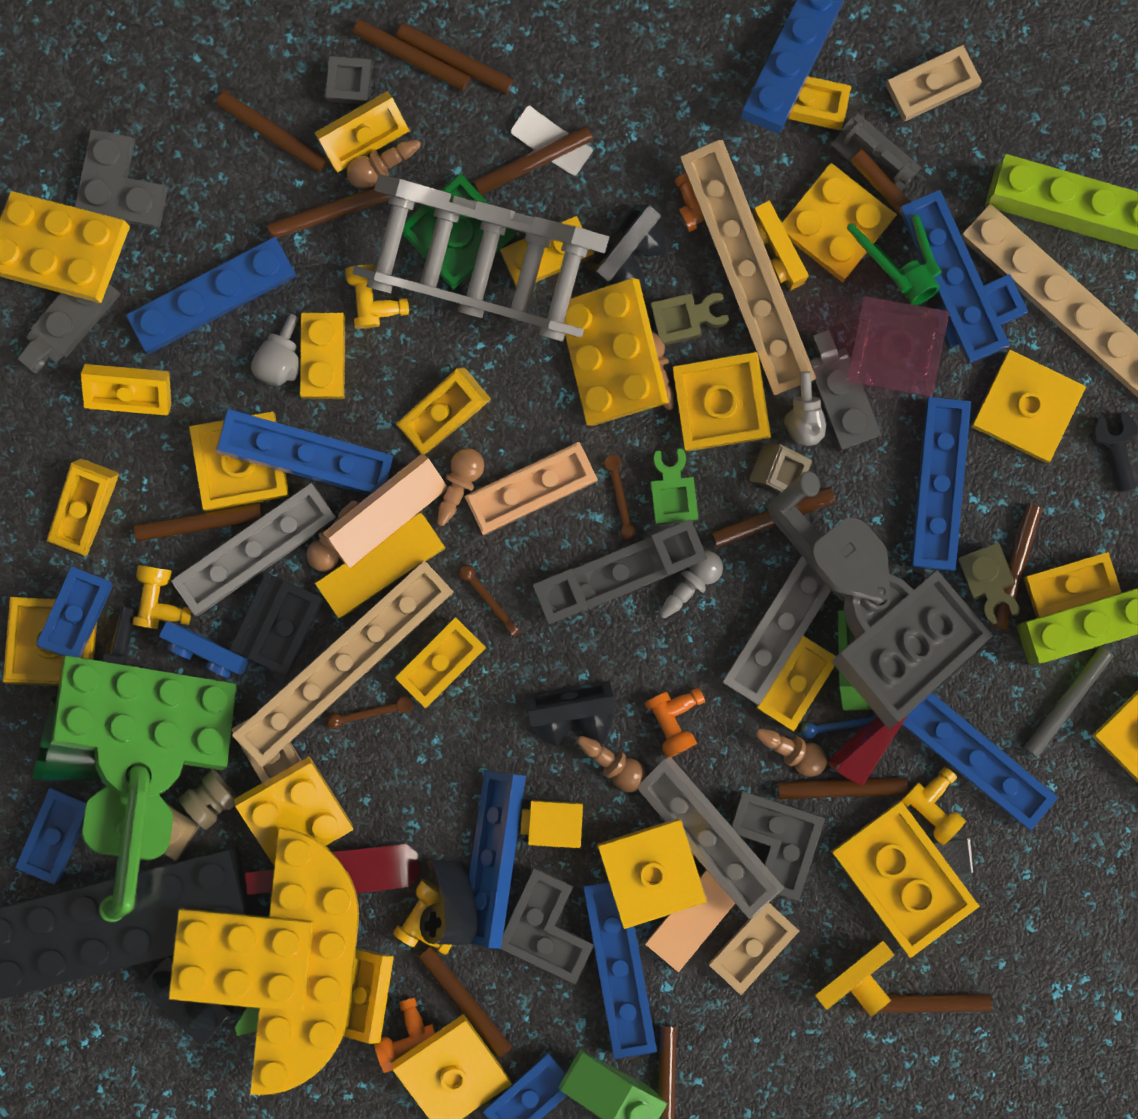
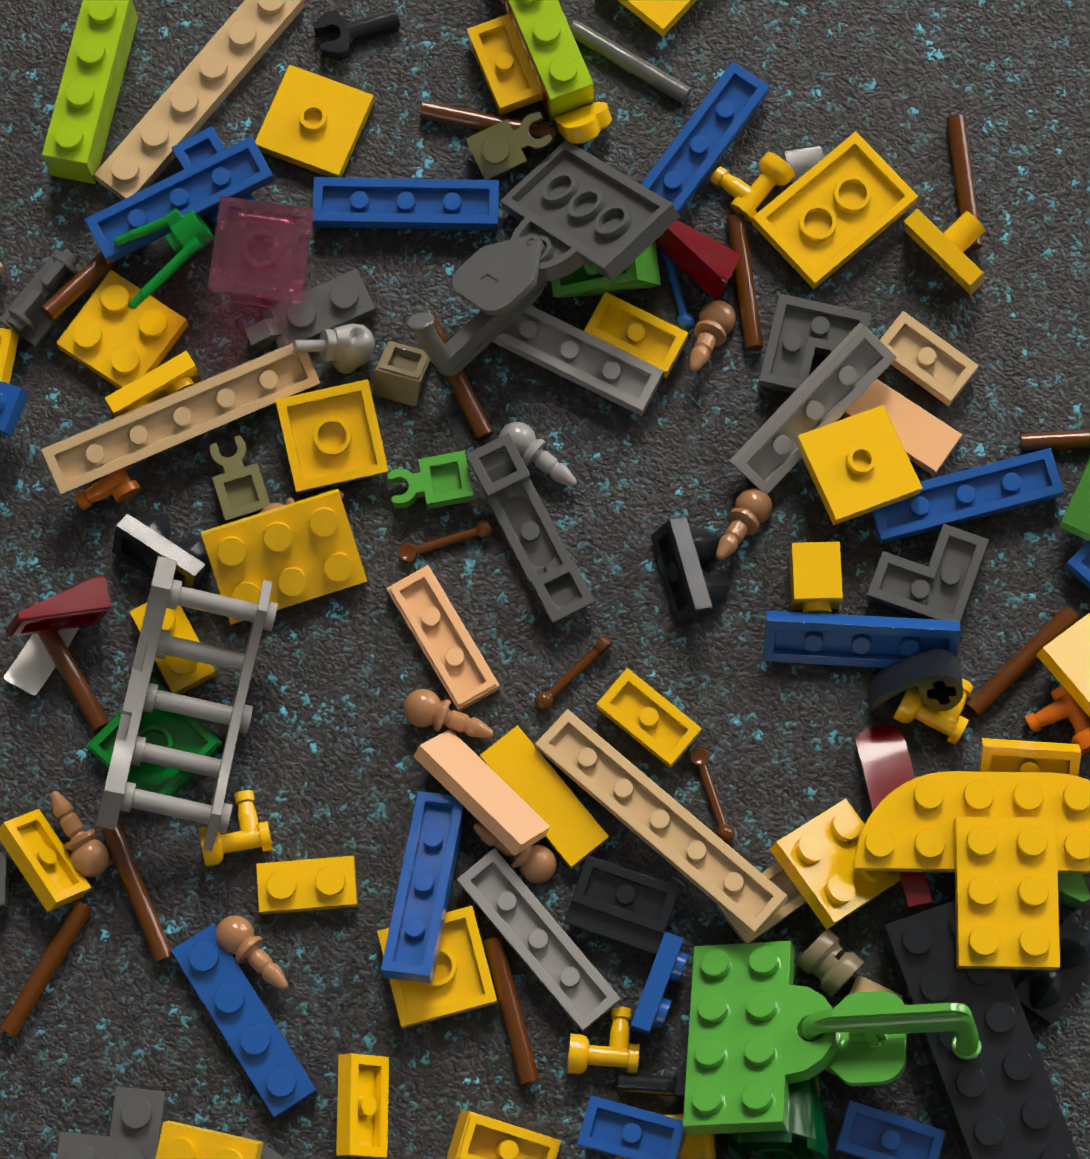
camera: 95 degrees left, 10 degrees down
(276, 358) = (315, 936): light grey piece -> none
(282, 292) = (237, 937): none -> medium nougat bar
(443, 410) = (362, 743): yellow slope -> none
(582, 171) = (72, 608): none -> dark red slope
(665, 712) = (679, 471): orange piece -> none
(1008, 653) = (583, 123): none -> yellow tile

